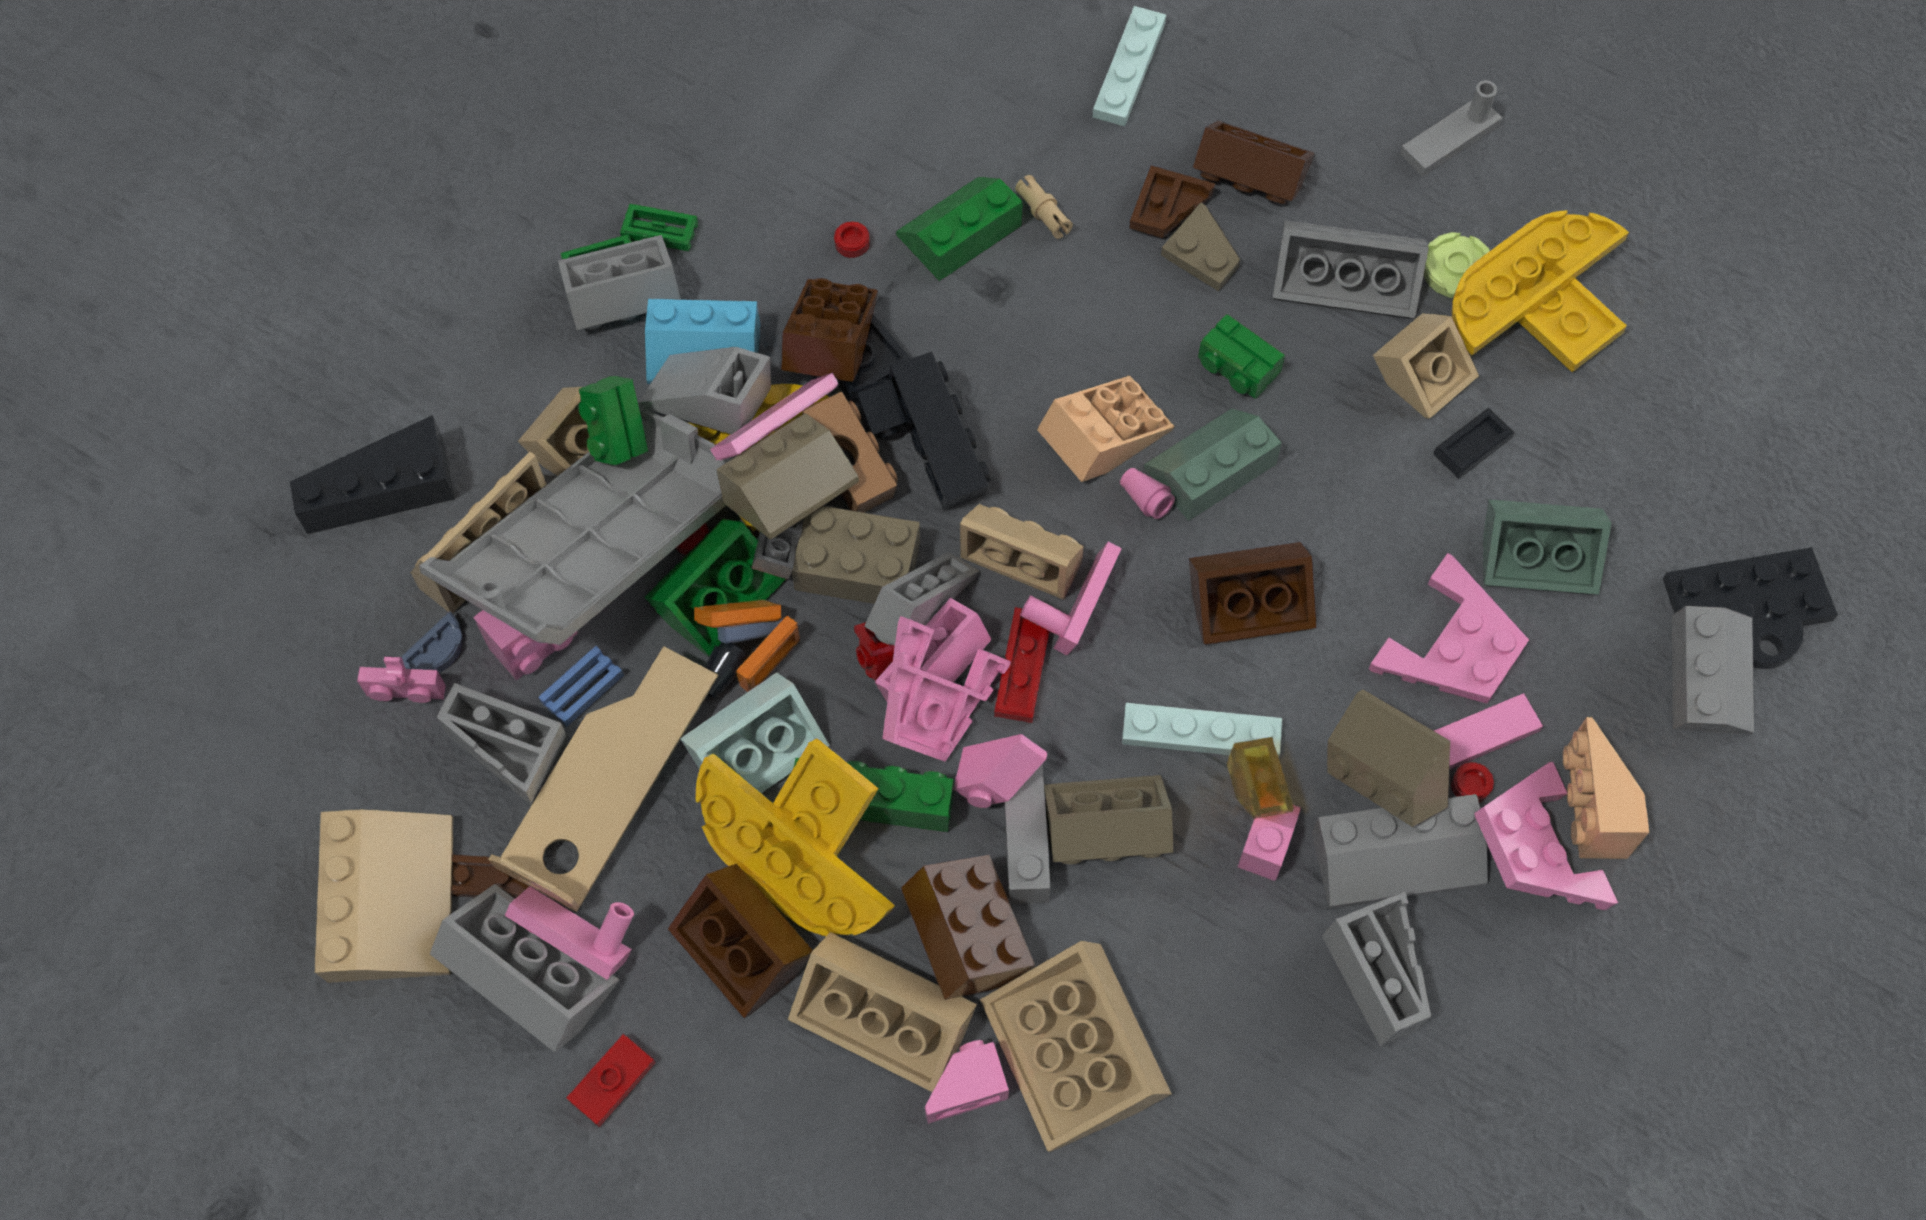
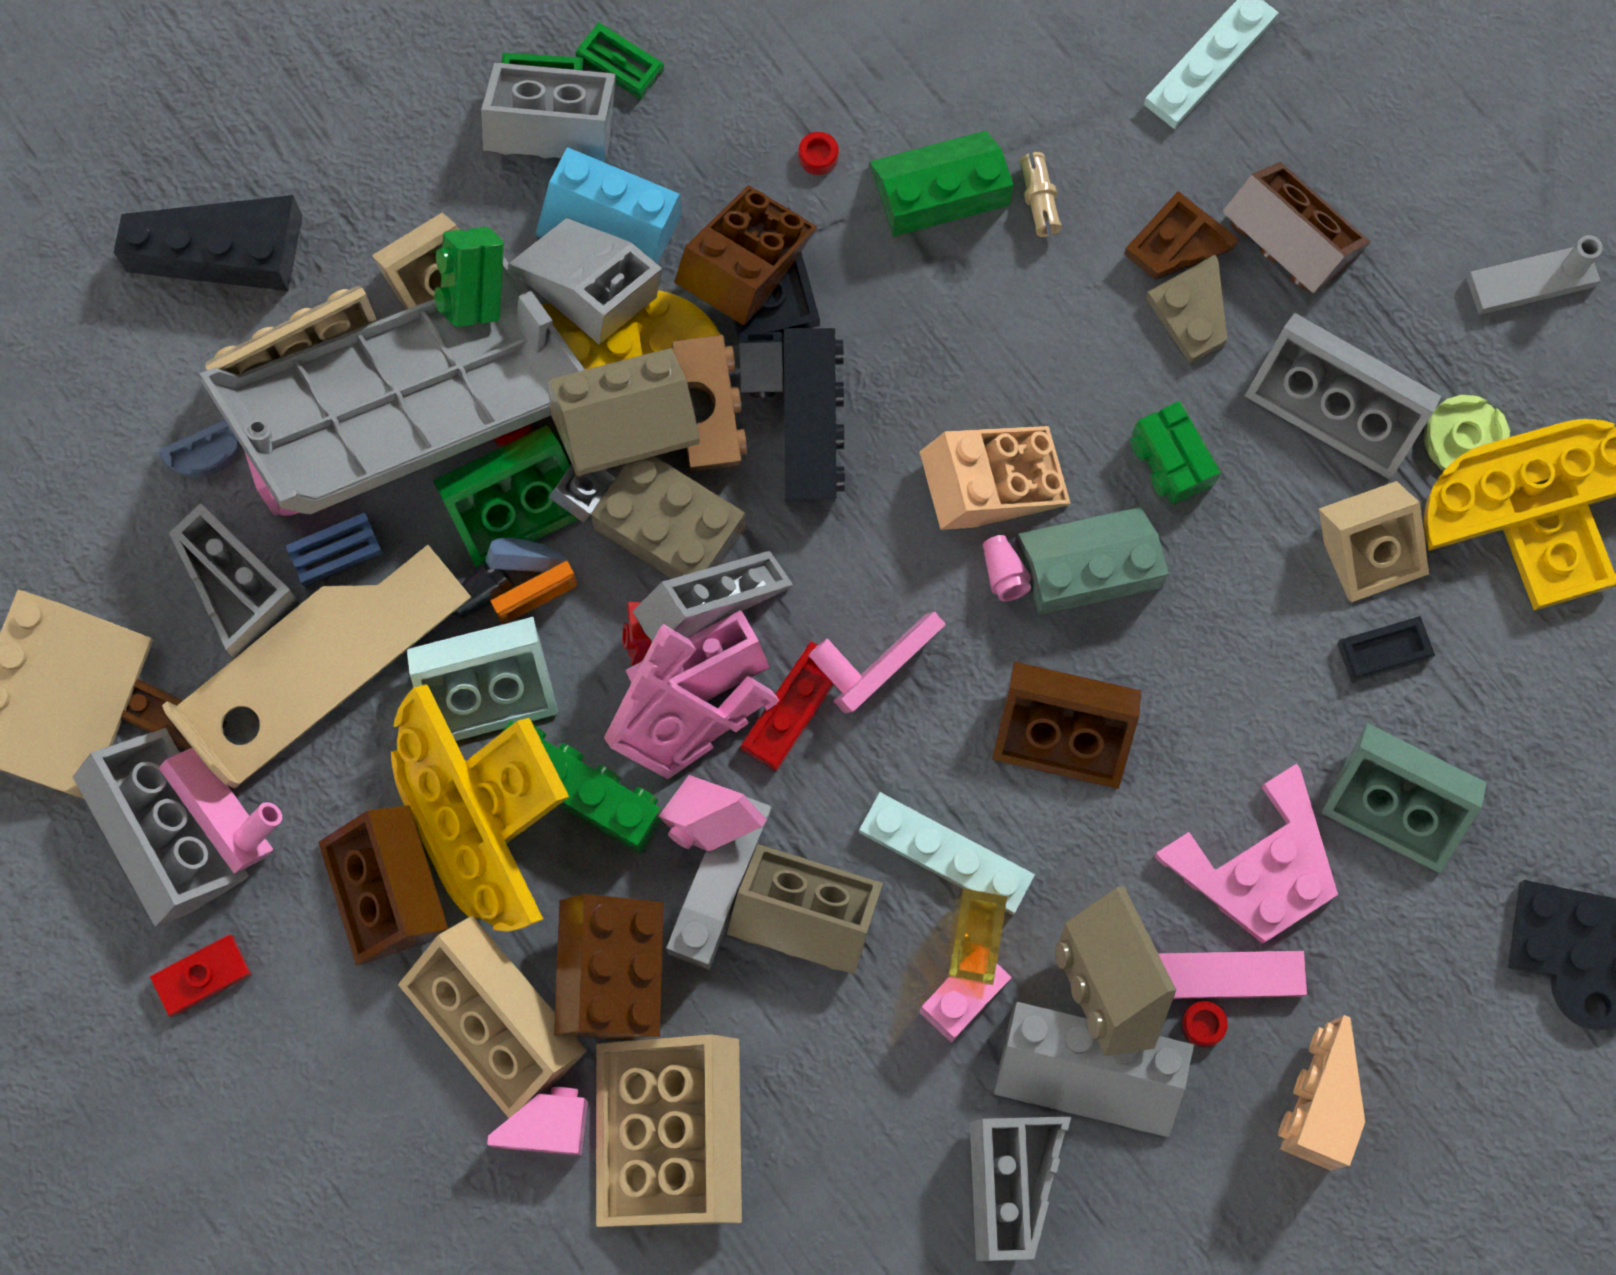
camera: 20 degrees right, 10 degrees up
(400, 682) = (147, 470): bright pink plate -> none
(737, 613) = (518, 537): orange tile -> none
(774, 417) = (640, 337): bright pink tile -> none
(1020, 550) = (842, 580): tan slope -> none
(1528, 848) = (1222, 1119): bright pink wing -> none
(1712, 670) = (1518, 1011): light grey slope -> none

